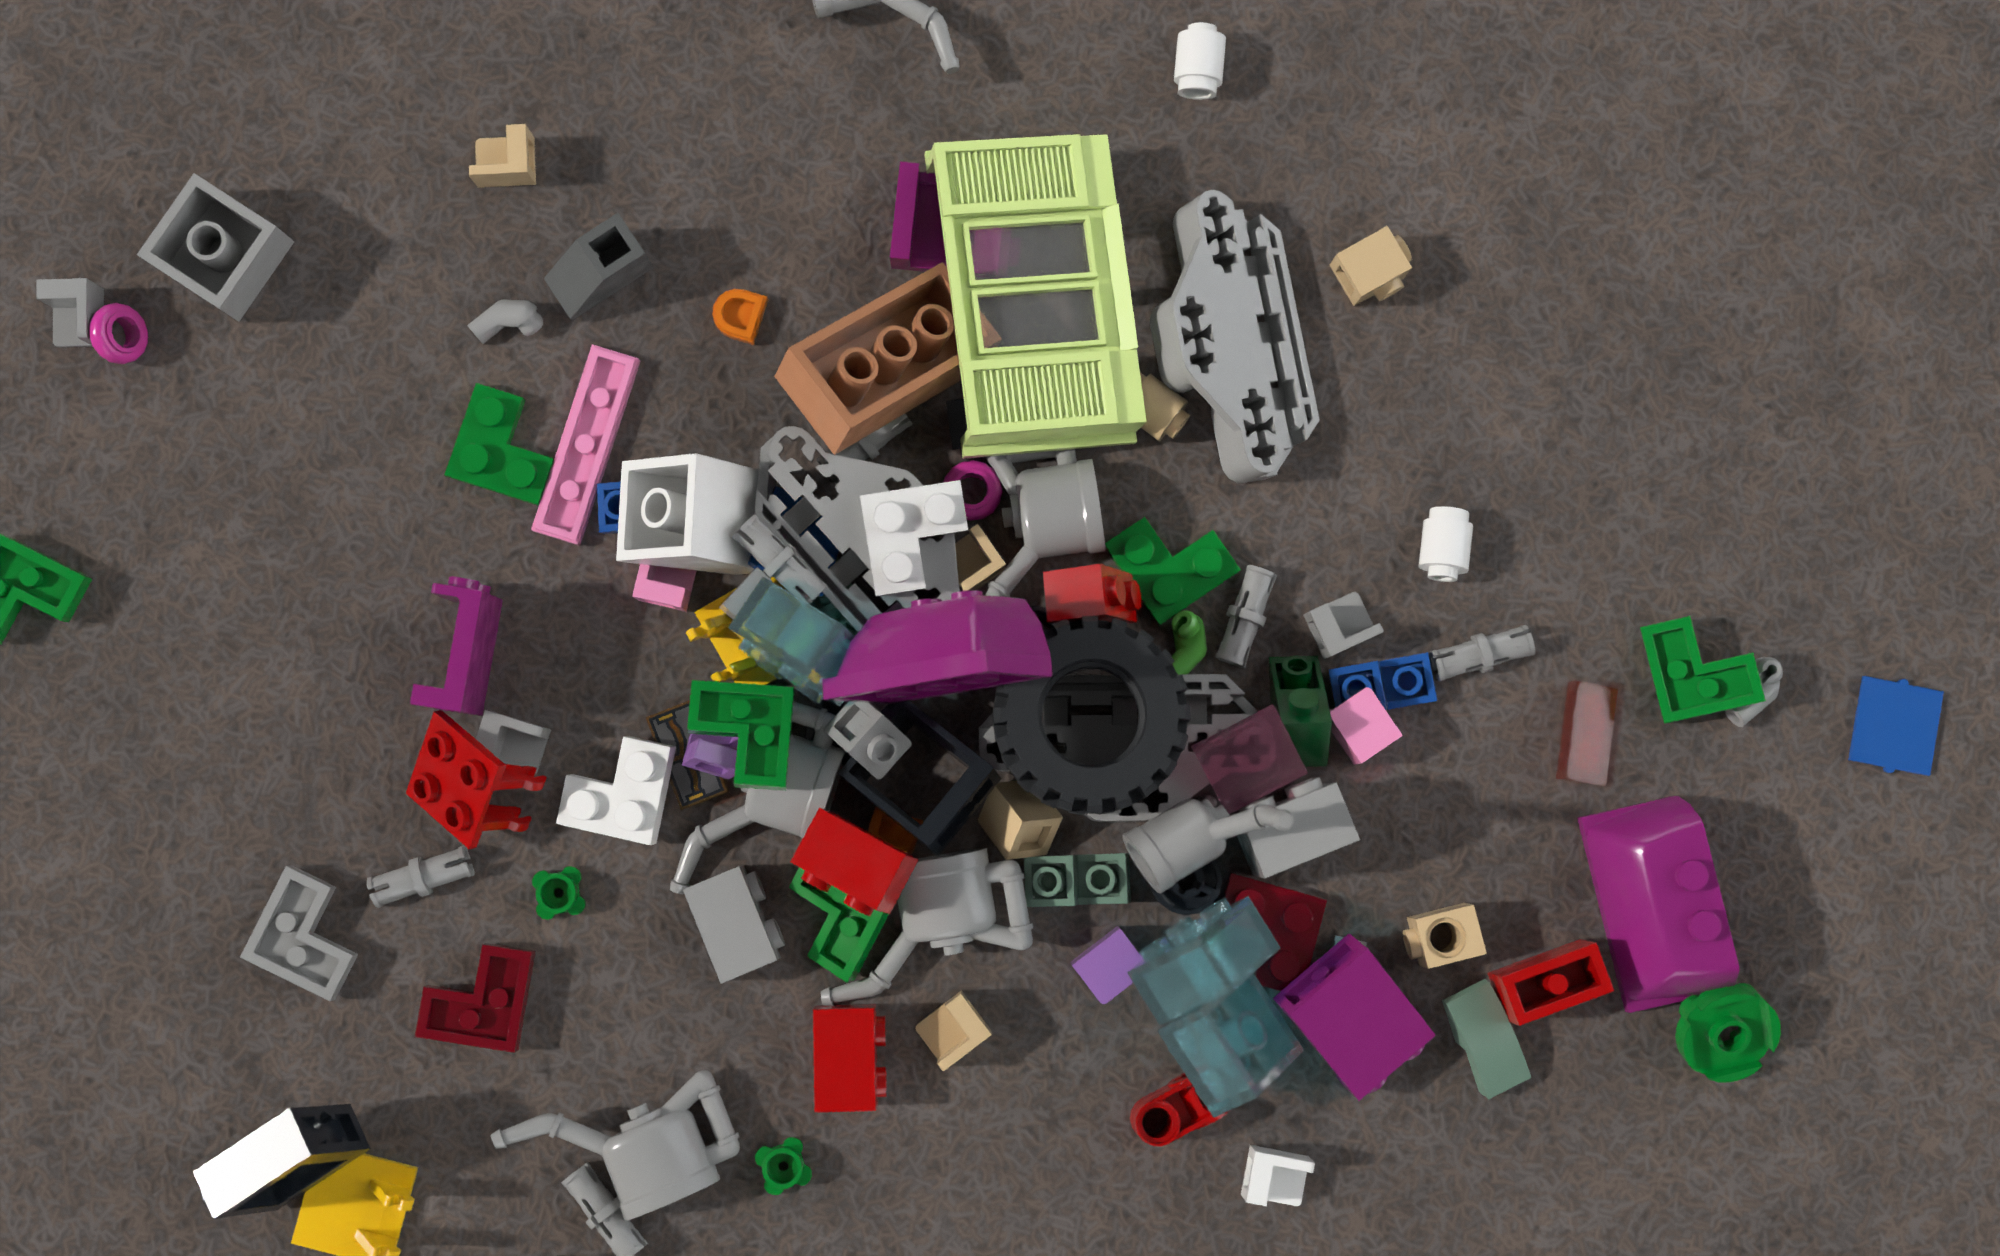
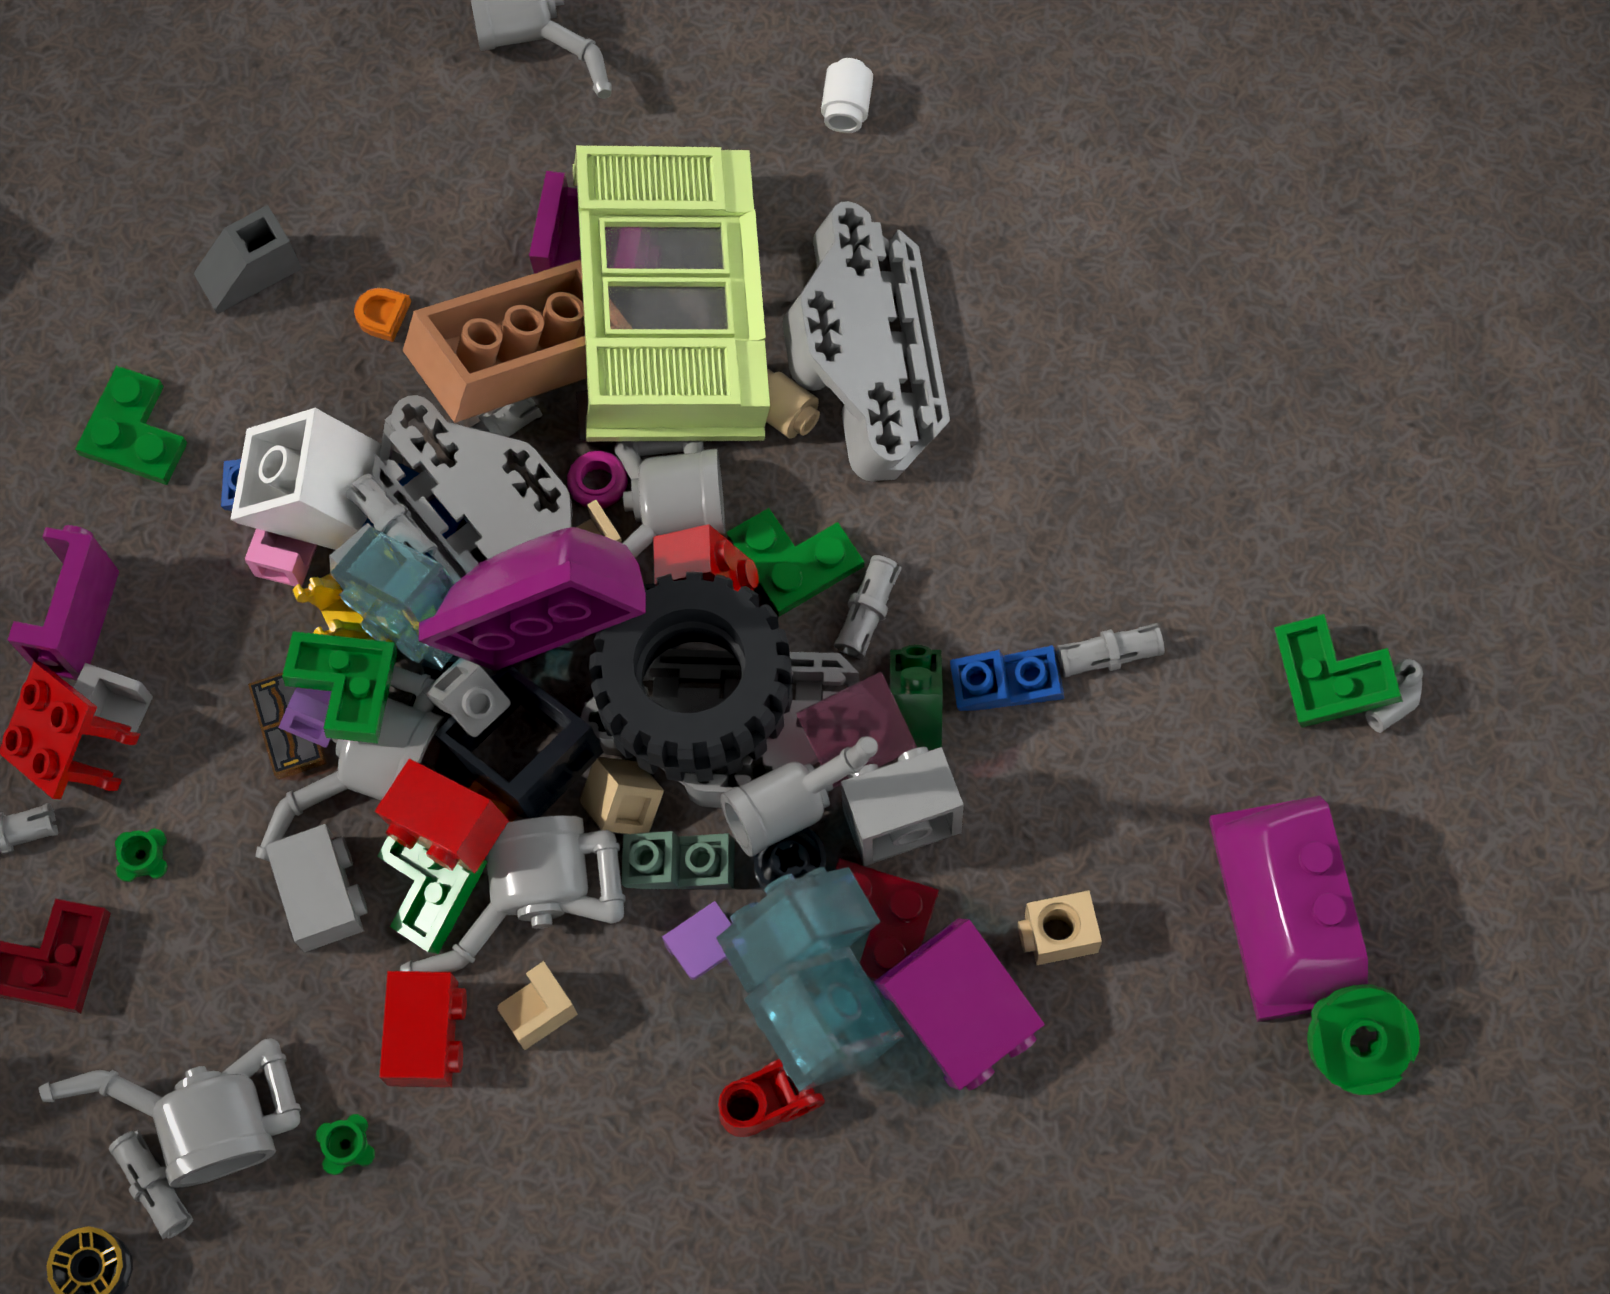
camera: 15 degrees right, 15 degrees down
(505, 159) = (170, 170): tan panel -> none
(507, 314) = (152, 305): light grey arm -> none
(585, 445) = (217, 428): bright pink tile -> none
(630, 805) = (226, 766): white plate -> none
(896, 522) = (515, 486): white plate -> none
(1189, 641) = (807, 626): bright green arm -> none
(1275, 1176) = (871, 1176): white panel -> none
(1341, 624) = (964, 618): light grey panel -> none
(1363, 726) = (980, 713): bright pink panel -> none
(1373, 266) = (1008, 280): tan brick -> none
(1446, 543) = (1075, 541): white brick -> none
(1487, 1037) = (1104, 1038): sand green slope -> none
(1551, 981) = (1170, 975): red brick -> none
(1587, 733) = (1220, 733): clear red slope -> none
(1896, 726) = (1548, 739): blue piece -> none

